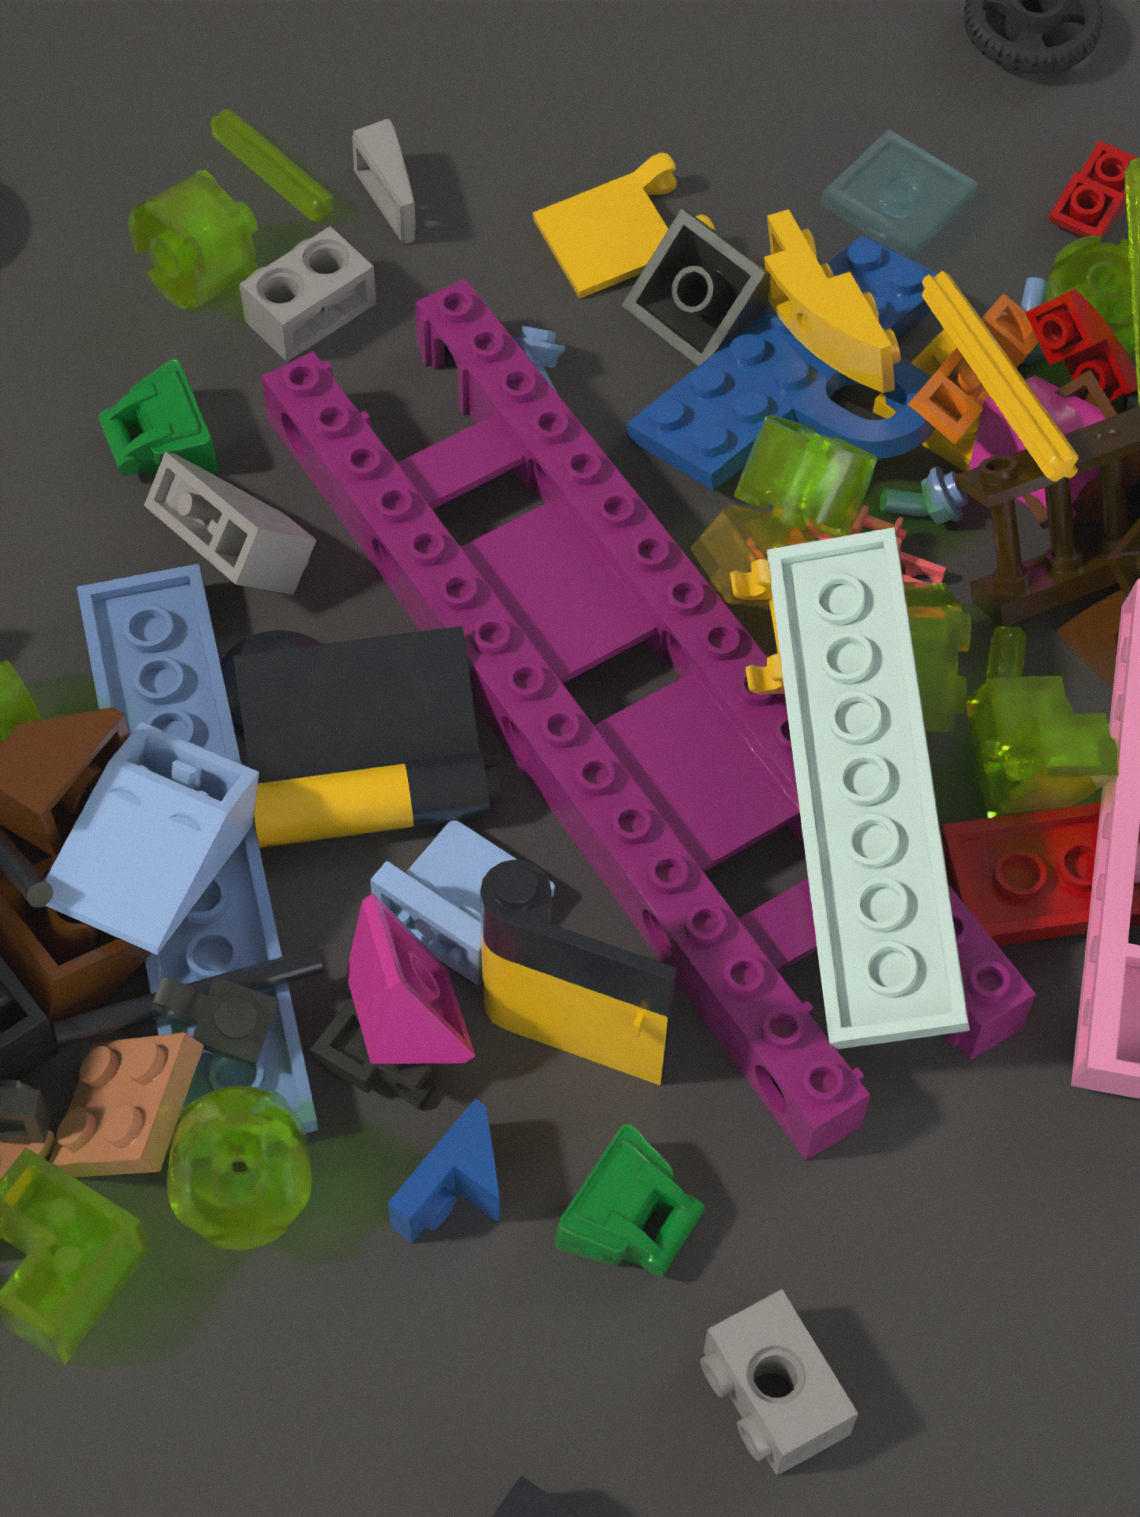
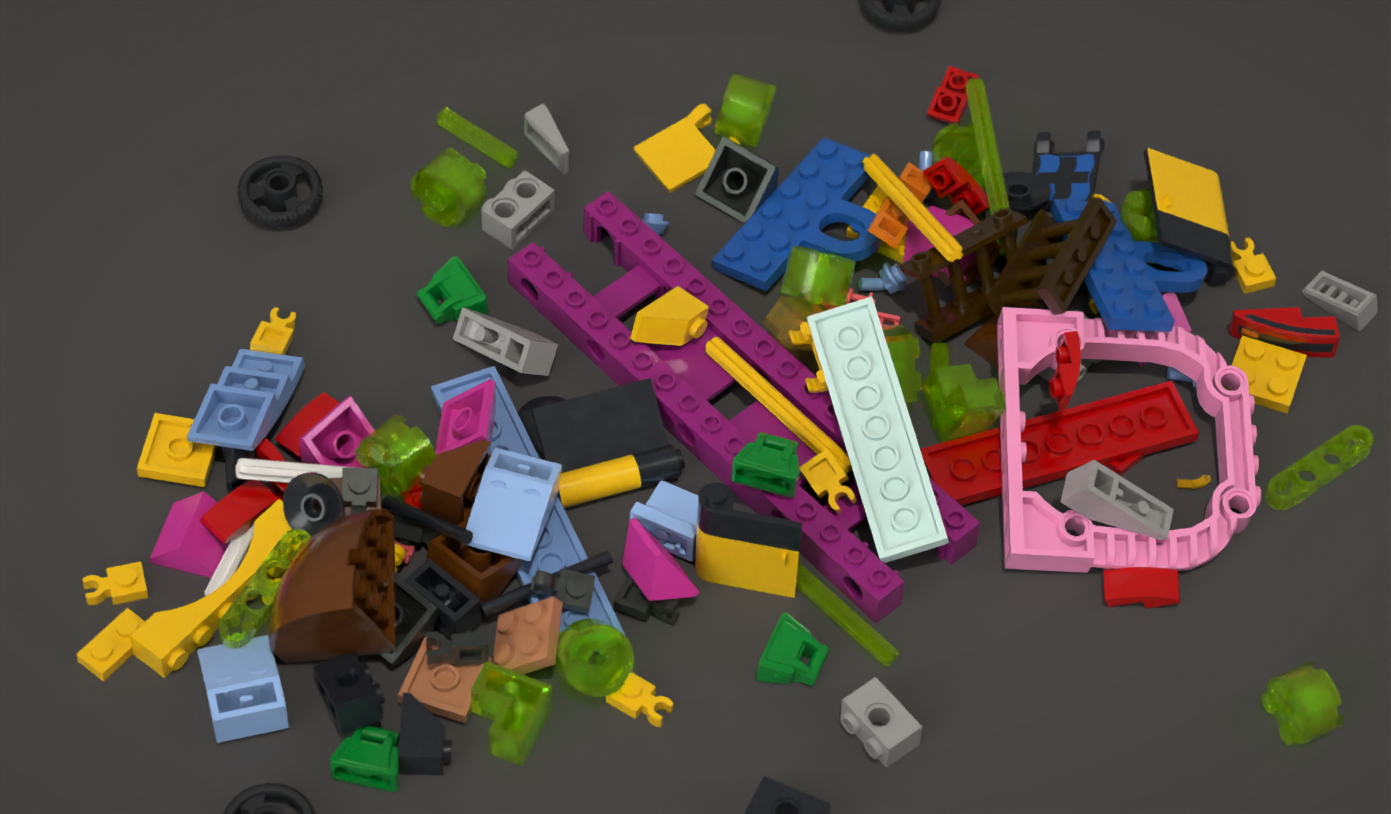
camera: 10 degrees left, 5 degrees down
(122, 661) = (467, 418): none -> dark pink slope
(317, 1251) = (639, 697): none -> yellow plate
(457, 1164) = (701, 647): blue slope -> none
(522, 521) = (671, 319): none -> yellow slope
(644, 829) = (768, 465): none -> green piece
(694, 710) = (775, 401): none -> yellow axle
(731, 169) = (745, 109): none -> clear neon green brick
(742, 1132) = (846, 617): none -> clear neon green axle
(754, 861) = (826, 477): none -> yellow plate
(827, 310) = (812, 184): yellow slope -> none
(899, 194) = (840, 111): clear light blue plate -> none

